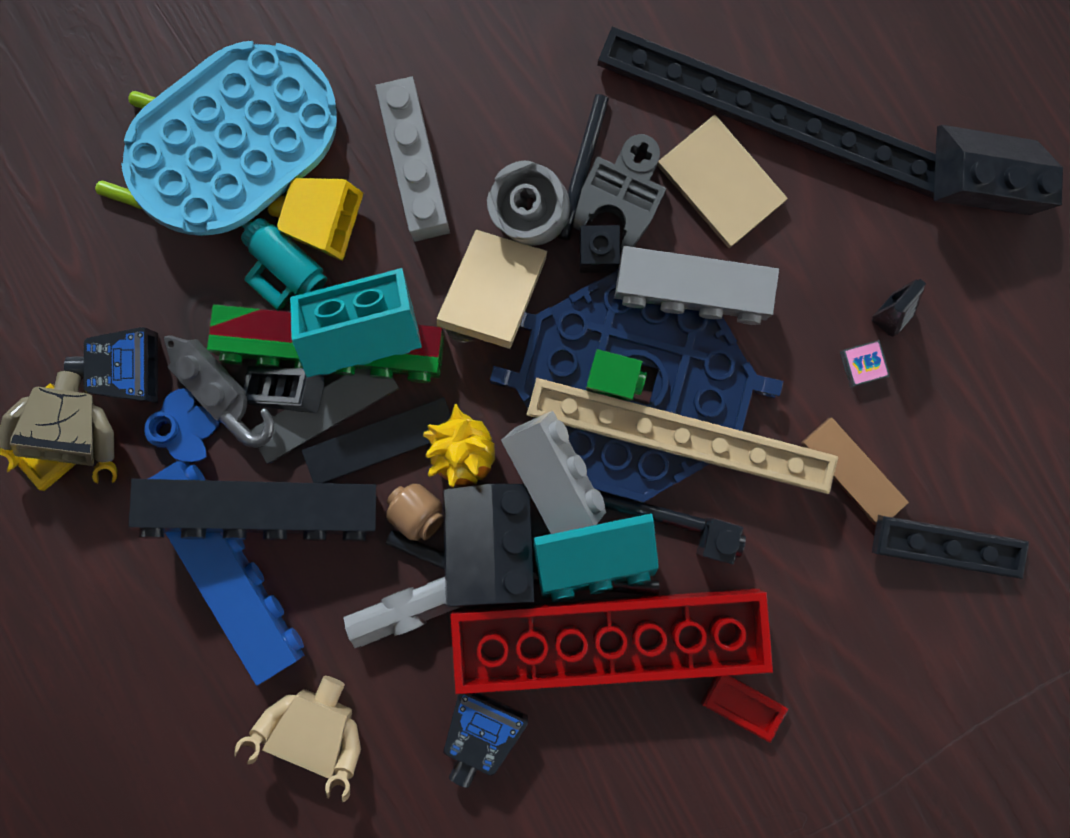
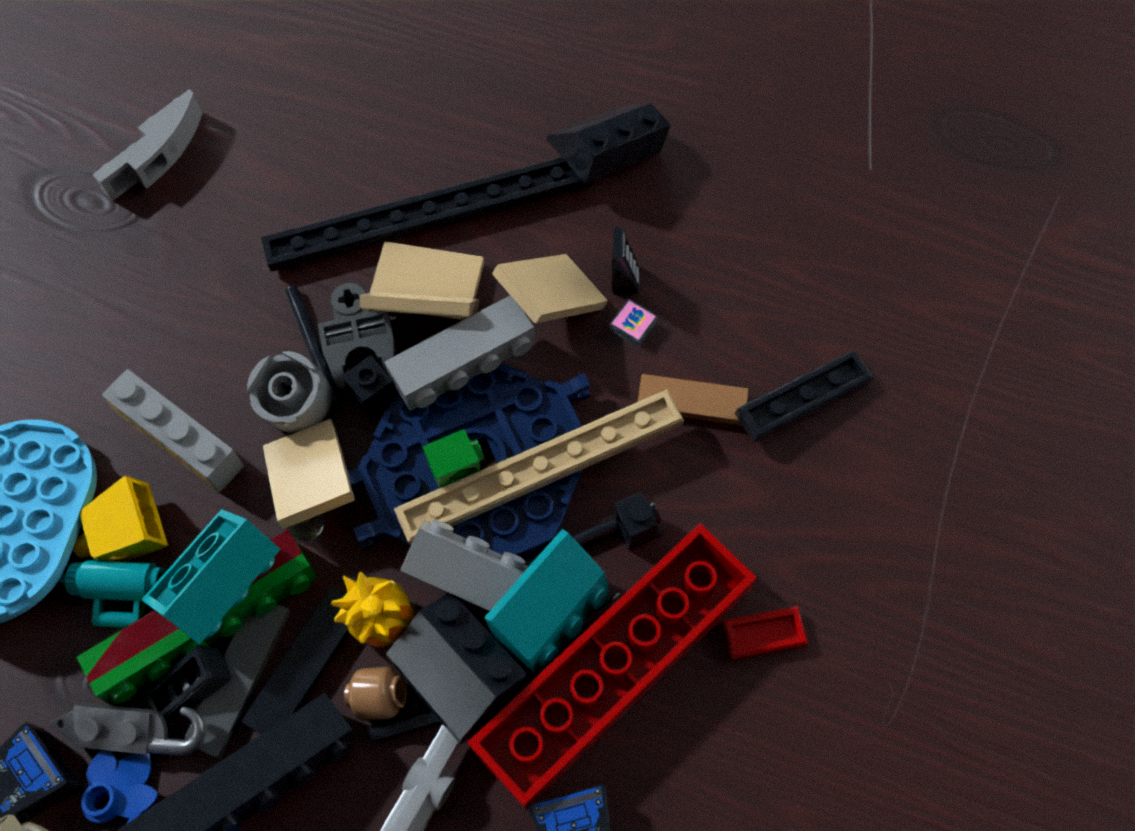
camera: 40 degrees left, 20 degrees down
(695, 211) = (419, 304): none -> tan tile
(818, 281) = (549, 287): none -> tan tile

